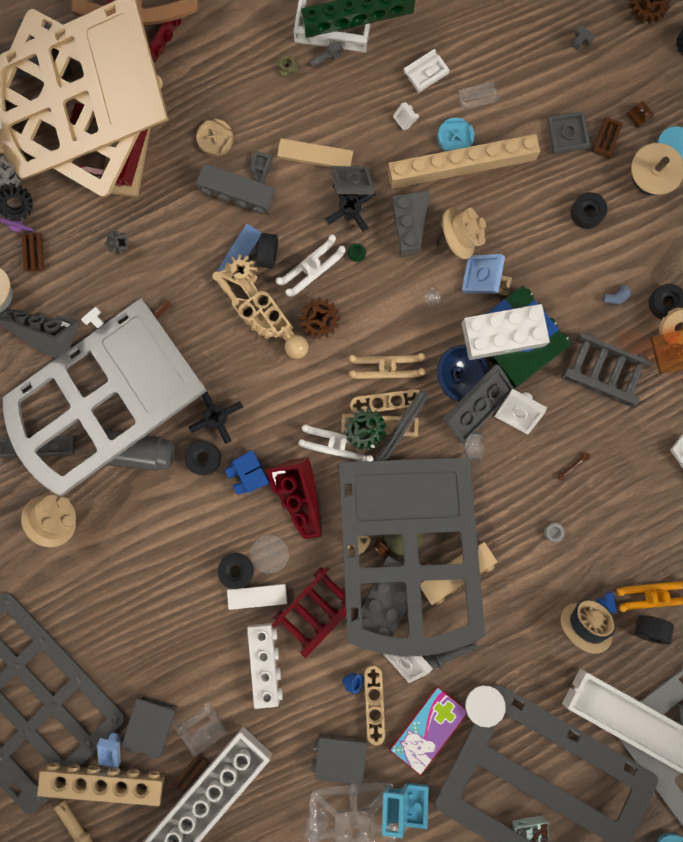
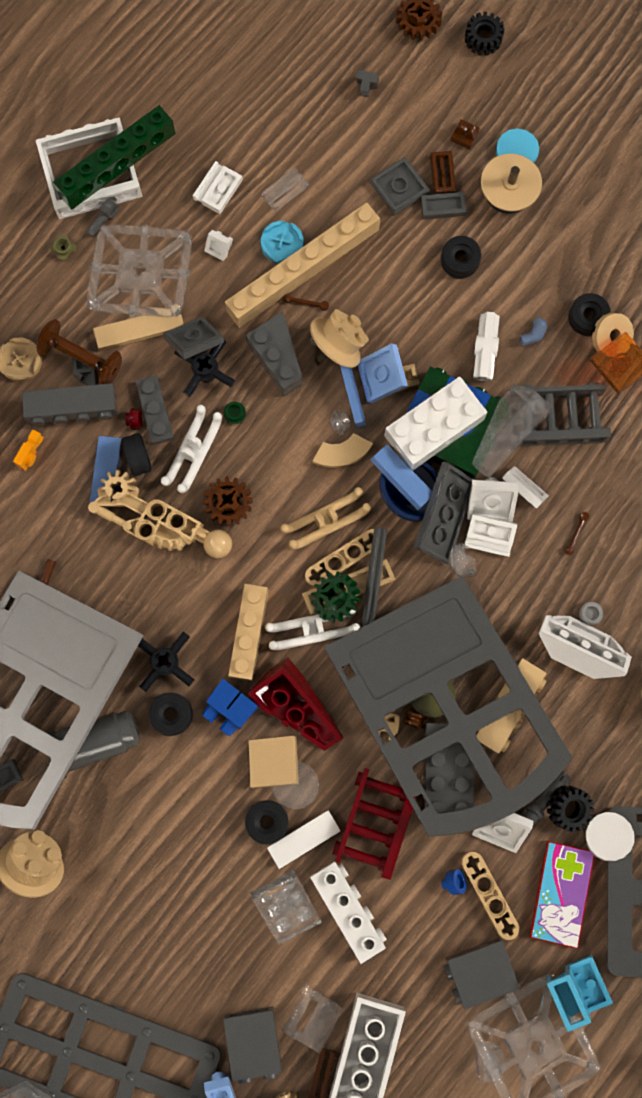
camera: 30 degrees left, 5 degrees down
(186, 212) = (27, 453): none -> light orange plate
(219, 641) = (285, 907): none -> clear plate
(243, 131) = (48, 338): none -> reddish brown hose
(261, 529) = (273, 762): none -> tan tile
(279, 222) = (134, 419): none -> dark red plate
(288, 424) = (248, 632): none -> tan brick
(297, 222) = (154, 410): none -> dark grey plate
(335, 98) = (132, 259): none -> clear plate
(424, 322) = (342, 454): none -> tan tile
(452, 282) = (353, 396): none -> medium blue tile
(459, 361) = (402, 476): none -> medium blue tile
(464, 200) = (323, 305): none -> reddish brown hinge
(470, 679) = (580, 814): none -> black tyre
(506, 436) = (490, 534): none -> white plate
(535, 556) = (583, 647): none -> white wedge
(552, 413) = (527, 487): none -> white plate
(567, 357) = (510, 425): none -> clear wedge
(574, 290) = (486, 346): none -> white piece
(595, 163) = (443, 205): none -> dark grey tile

